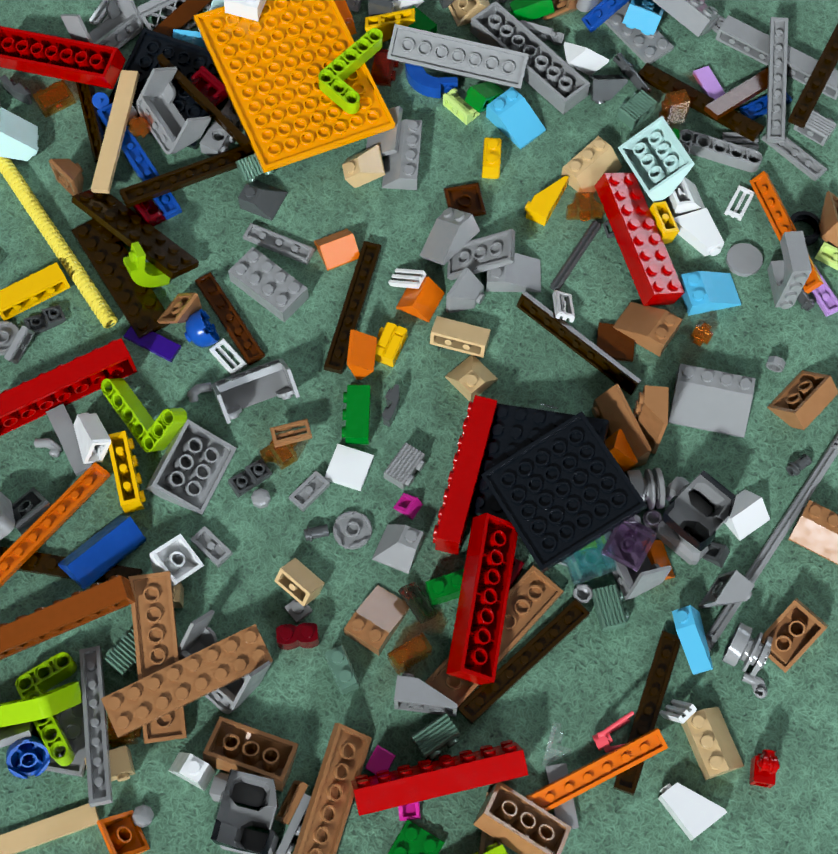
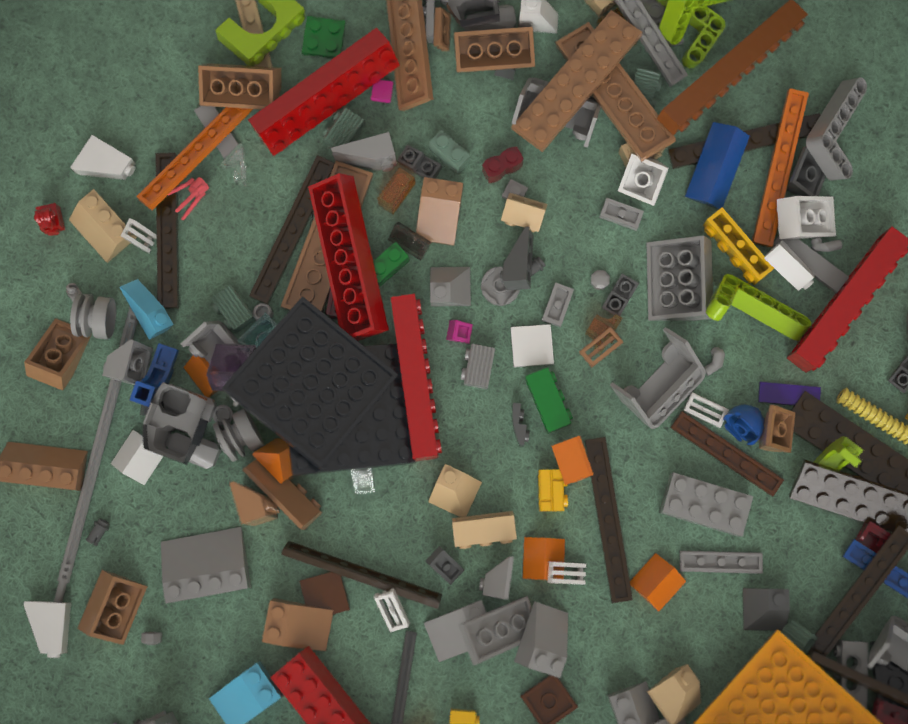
camera: 160 degrees right, 15 degrees up
(53, 470) = (806, 217): none -> white slope
(329, 531) = (518, 264): none -> dark grey slope
(375, 675) = (419, 163): none -> dark grey slope
(505, 324) = (444, 565): none -> dark grey slope
(702, 334) = (237, 639): clear orange gear -> none
(705, 569) = (159, 371): none -> blue arch

